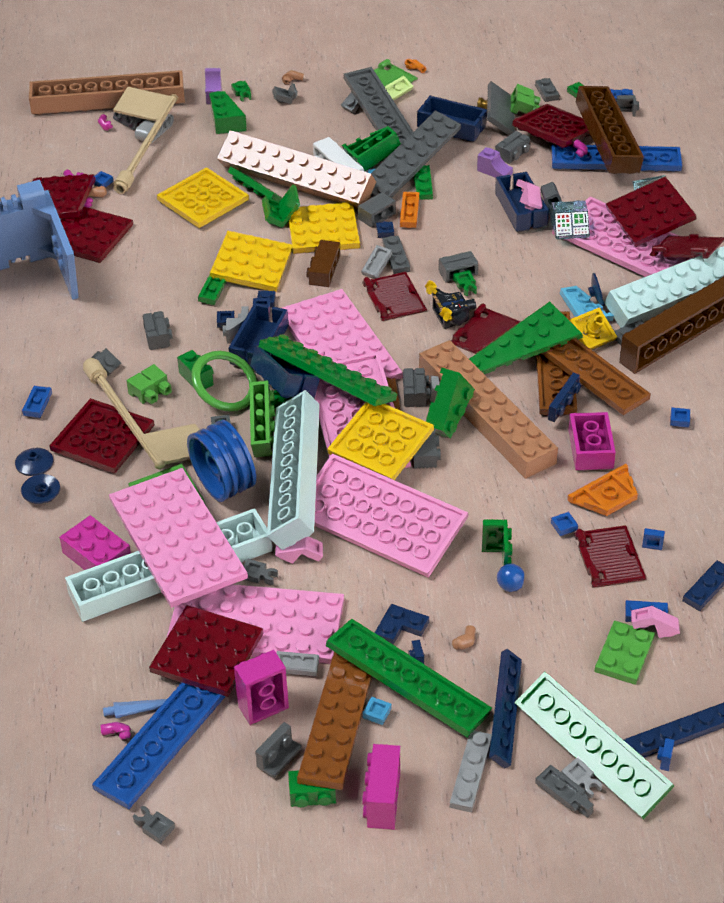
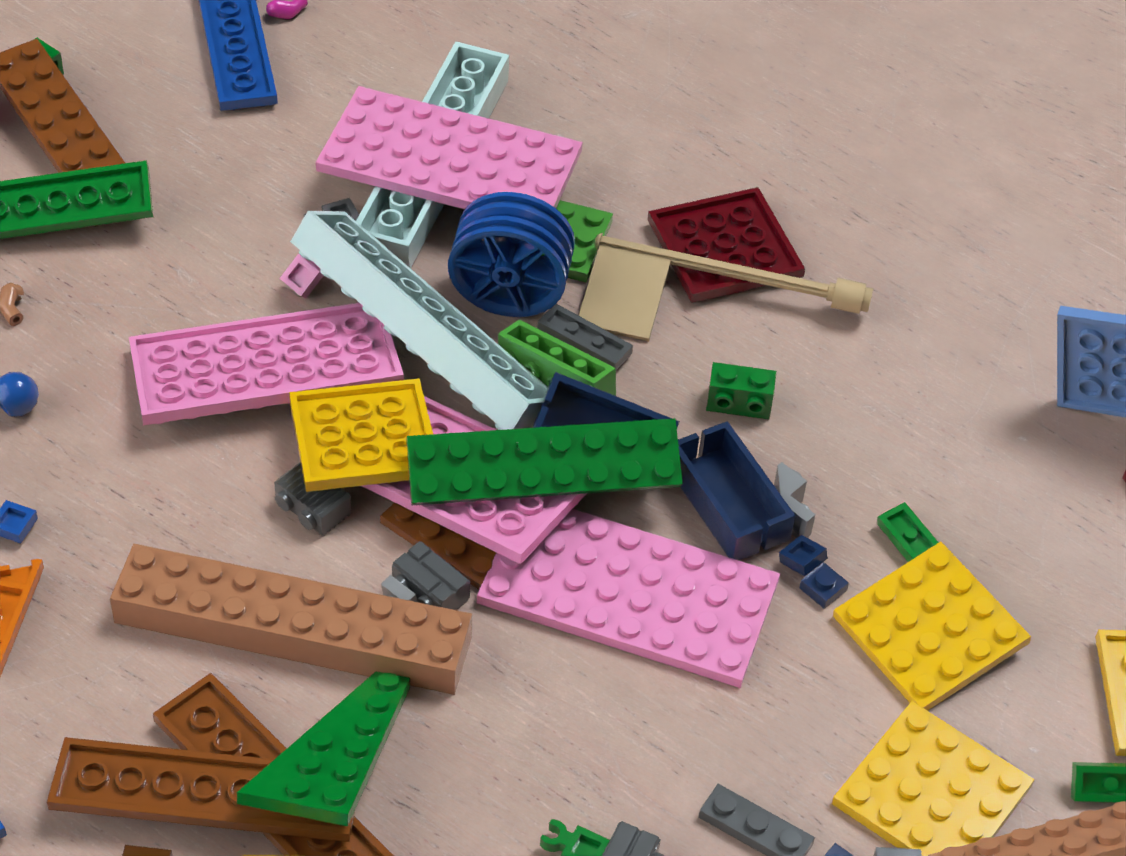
camera: 130 degrees right, 5 degrees up
(34, 461) = (757, 172): dark blue dish -> none
(37, 401) = (860, 230): blue plate -> none
(40, 488) = (691, 141): dark blue dish -> none
(92, 544) = (541, 110): dark pink brick -> none
(107, 360) = (868, 329): dark grey bracket -> none
(133, 707) = (299, 32): medium blue bar -> none
(149, 384) = (770, 335): bright green hips -> none
(156, 330) = (877, 414): dark grey brick -> none
(205, 396) = (679, 346): bright green wedge -> none
(205, 650) = (277, 102): dark red plate -> none
(222, 316) = (823, 501): dark blue plate -> none
(261, 687) = (165, 83): dark pink brick -> none
(277, 751) = (96, 72): dark grey bracket -> none
(280, 212) = (1035, 748): green bracket -> none
(289, 618) = (254, 185): bright pink plate -> none
(299, 663) = (177, 161): light grey plate -> none
(323, 263) = (826, 705): reddish brown brick -> none
(376, 262) = (757, 773): light grey plate -> none
(377, 710) = (34, 166): dark azure plate -> none
(394, 294) = (661, 742): dark red window -> none
(401, 619) = (113, 278): dark blue plate -> none
(417, 651) = (46, 245): dark blue plate -> none
(449, 307) = (536, 764): torso -> none
(449, 403) = (329, 551): green wedge -> none
(481, 330) = (442, 782): dark red window -> none
(495, 538) = (71, 421): green bracket -> none
(564, 397) = (178, 697): dark blue plate -> none
(591, 441) = (77, 663): dark pink brick -> none

